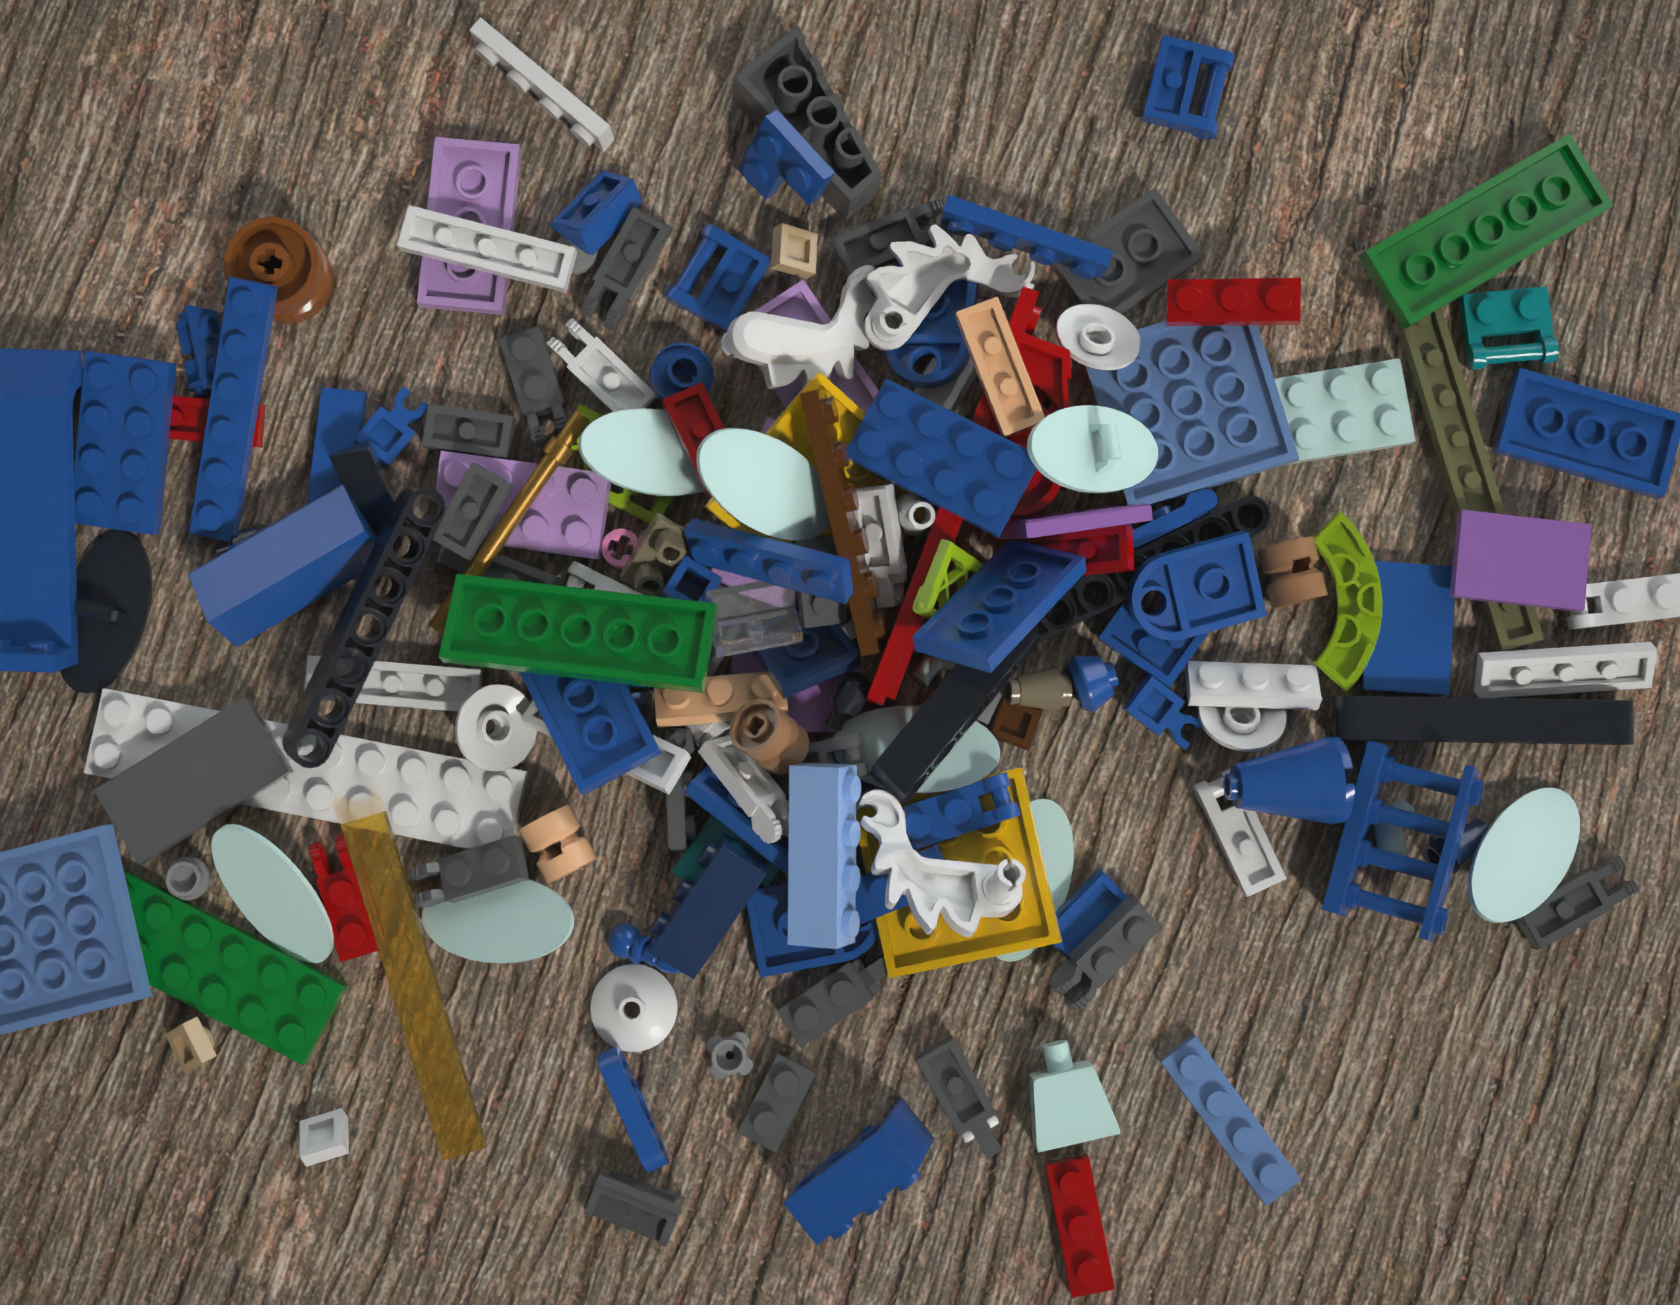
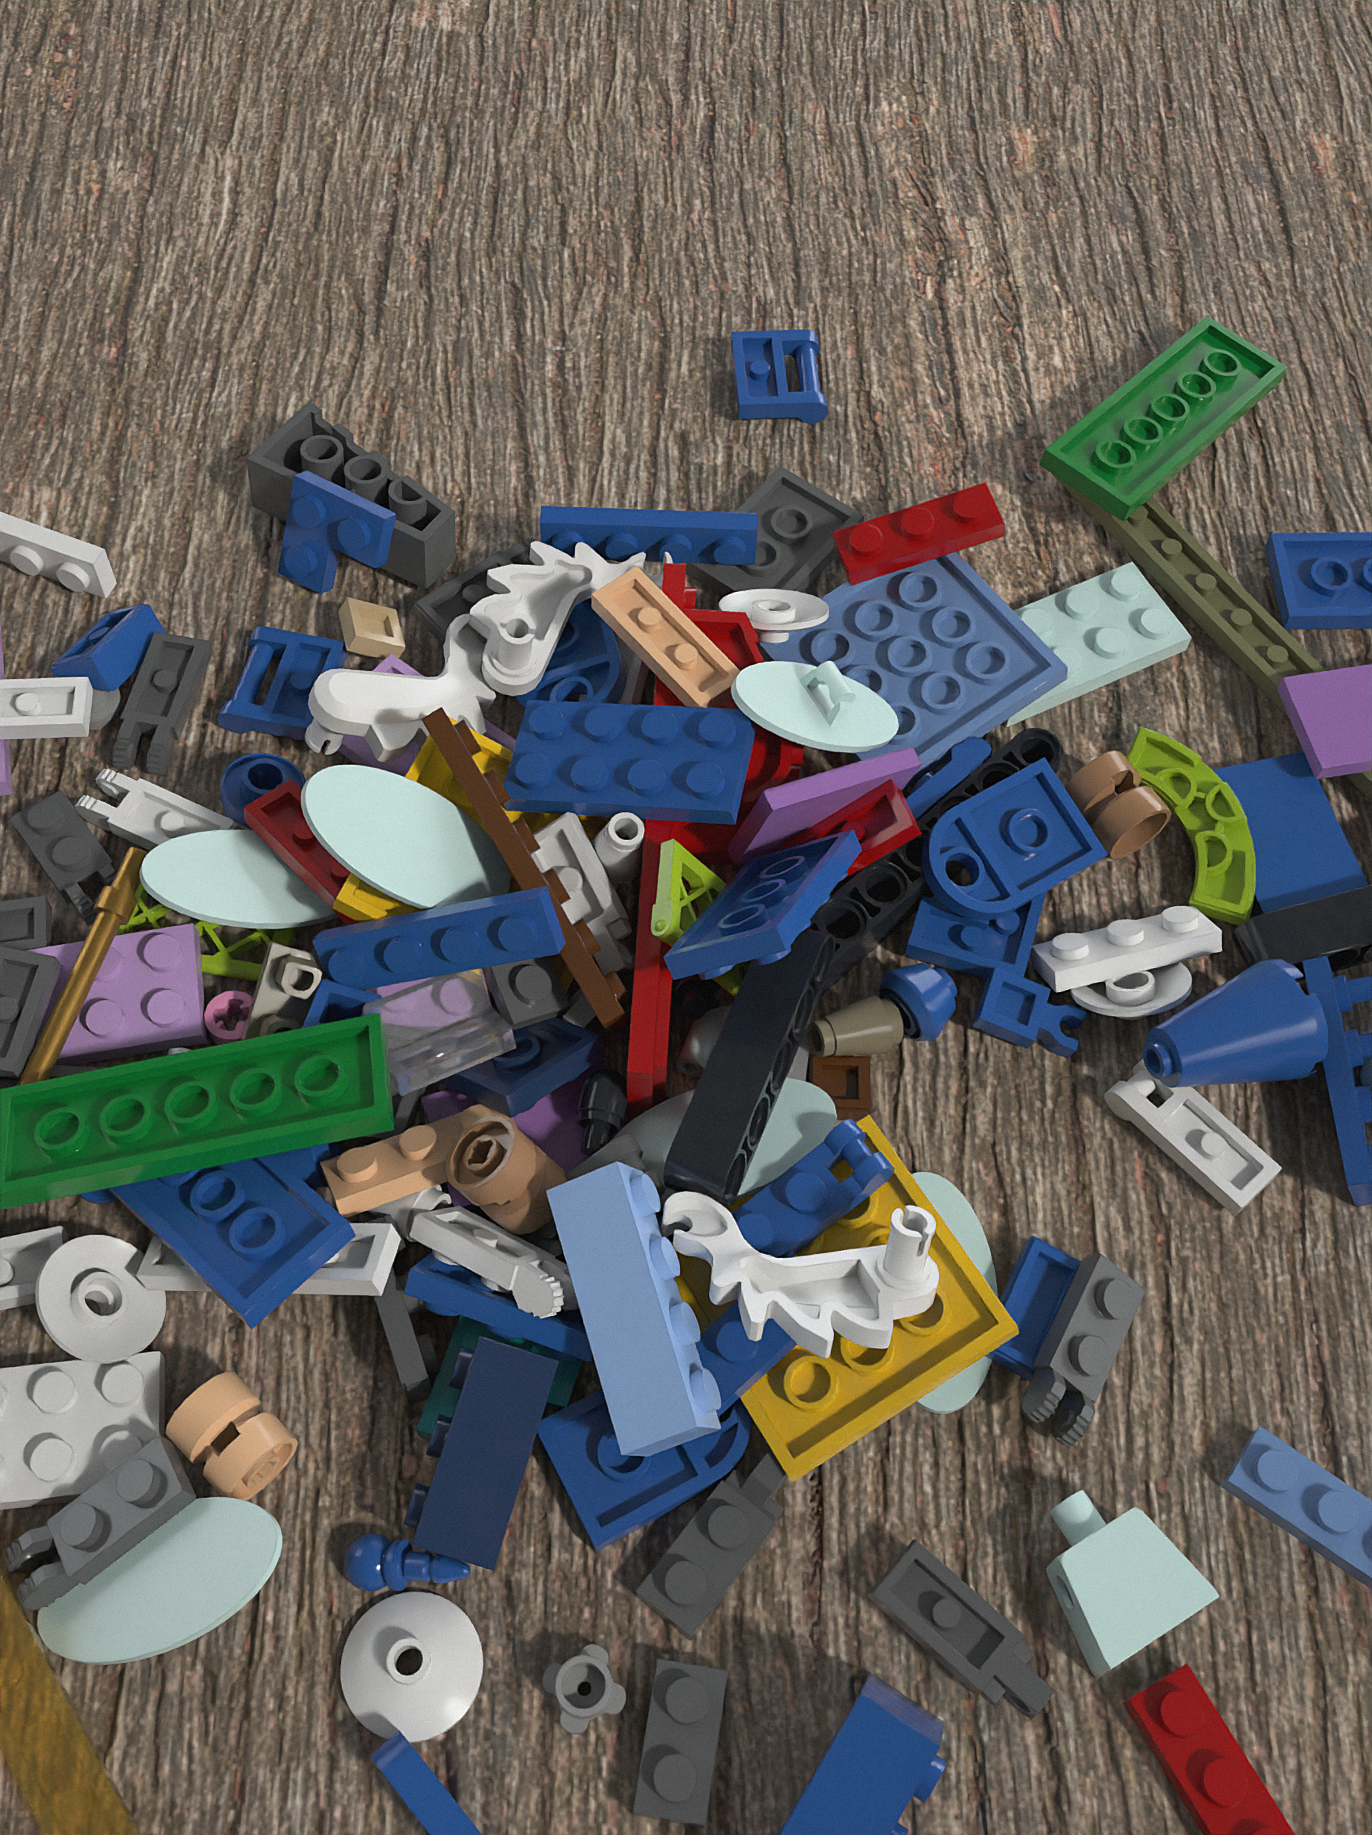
camera: 20 degrees left, 25 degrees down
(1505, 315) = (1230, 495): teal plate -> none

